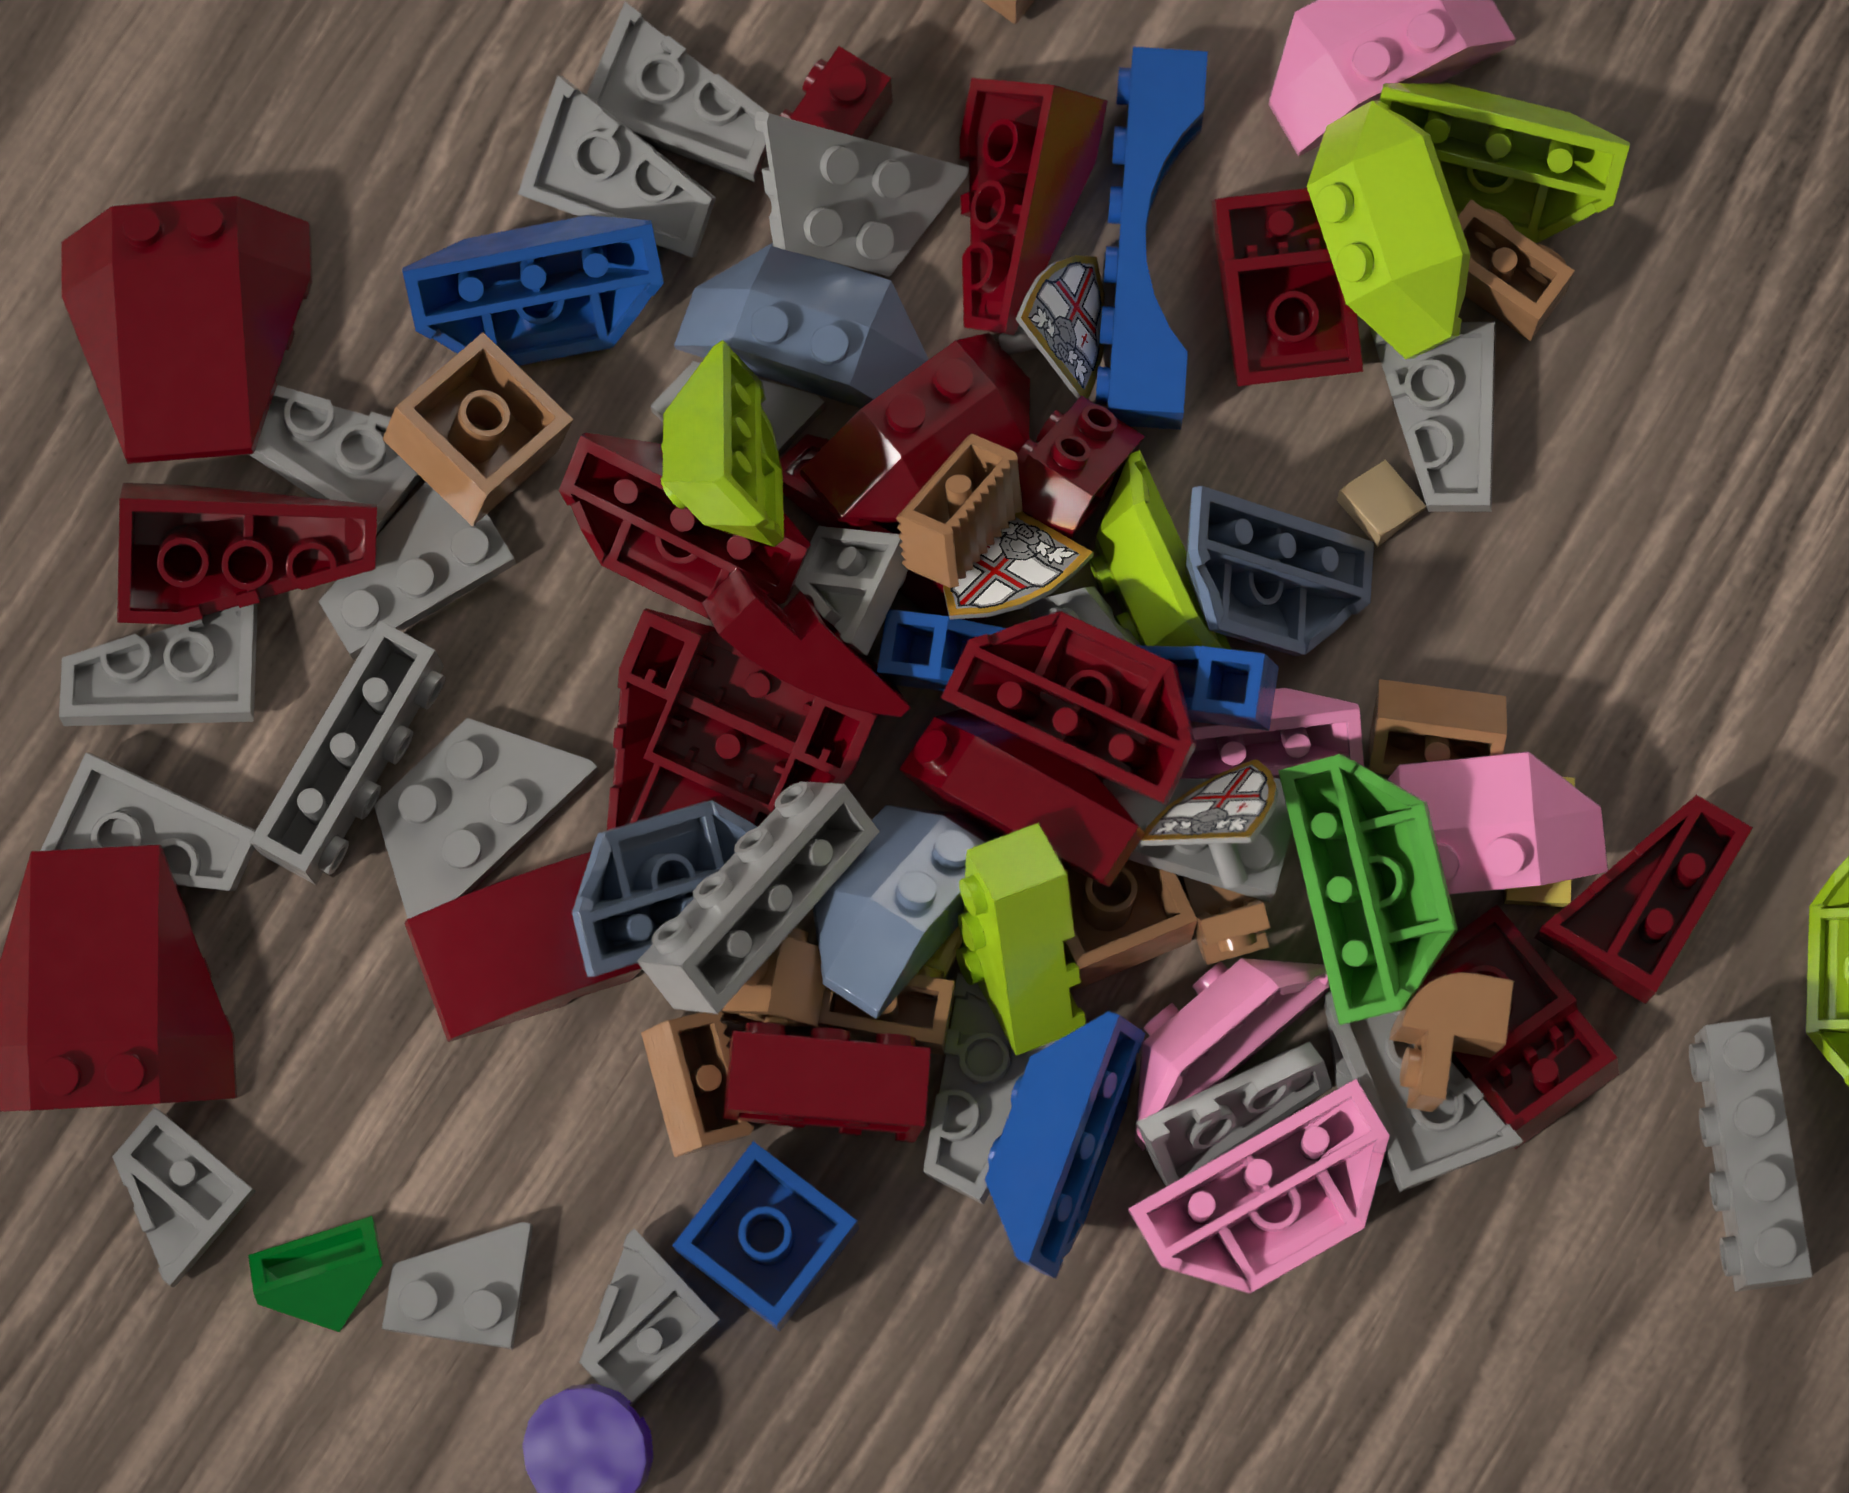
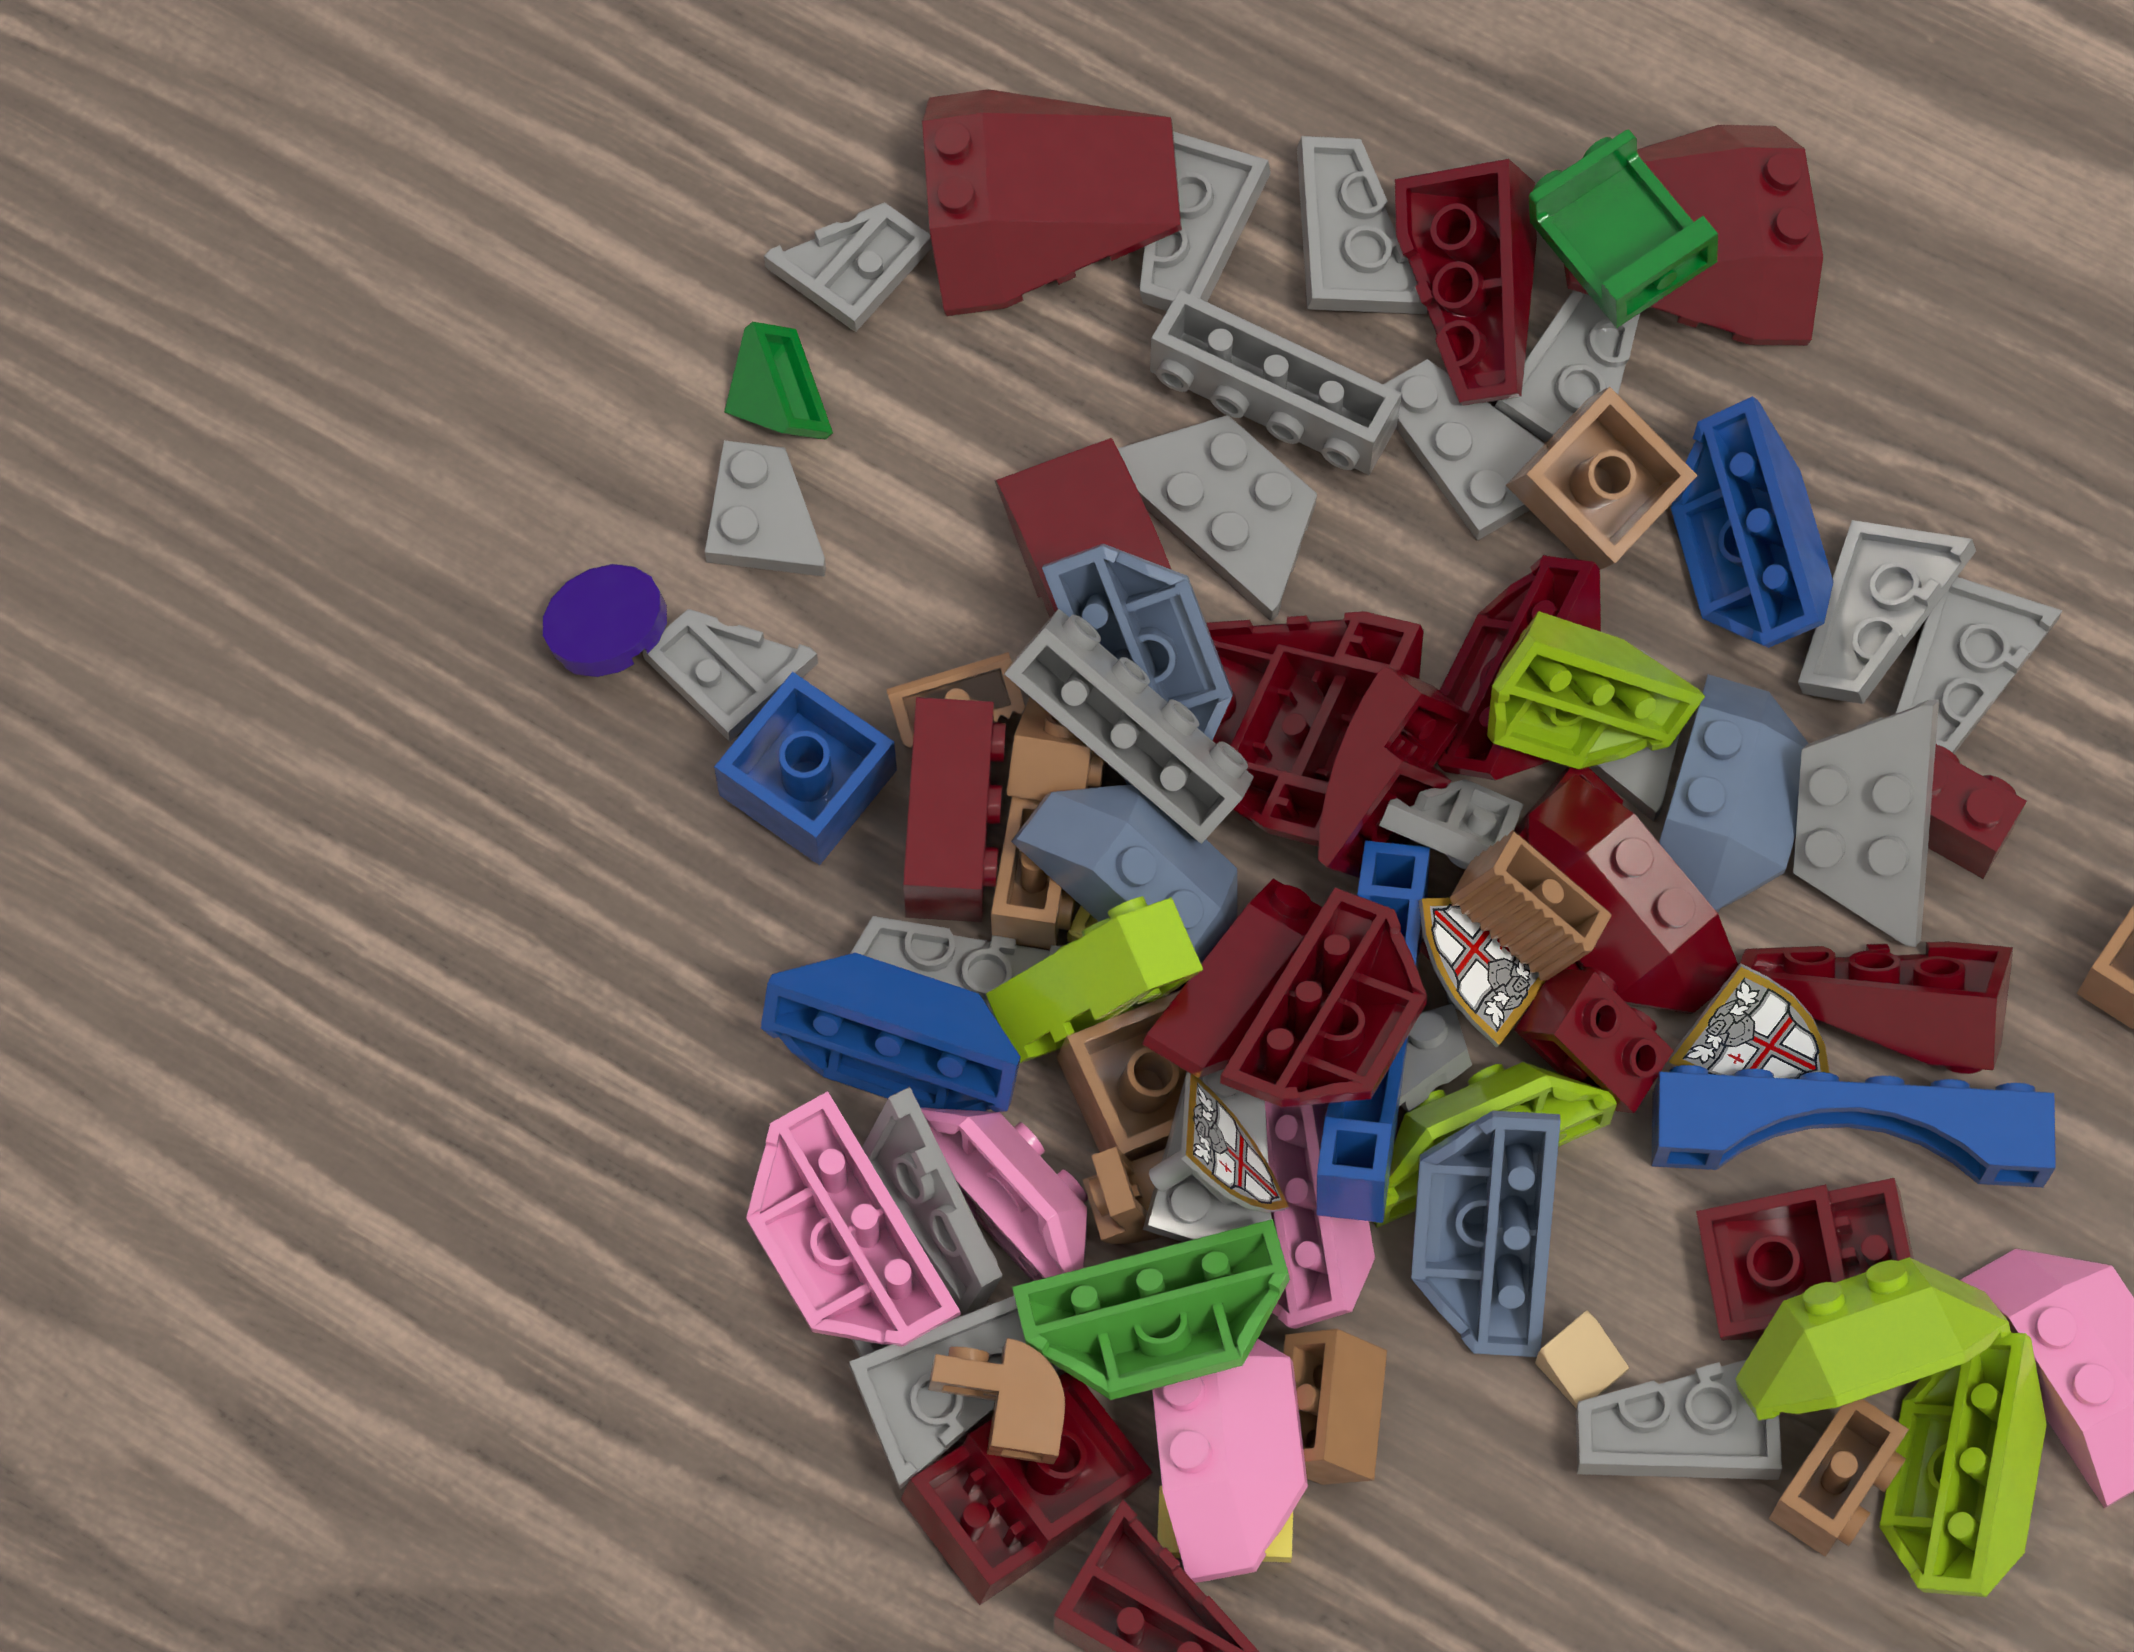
camera: 85 degrees right, 10 degrees down
(203, 391) = (1620, 229): none -> green panel

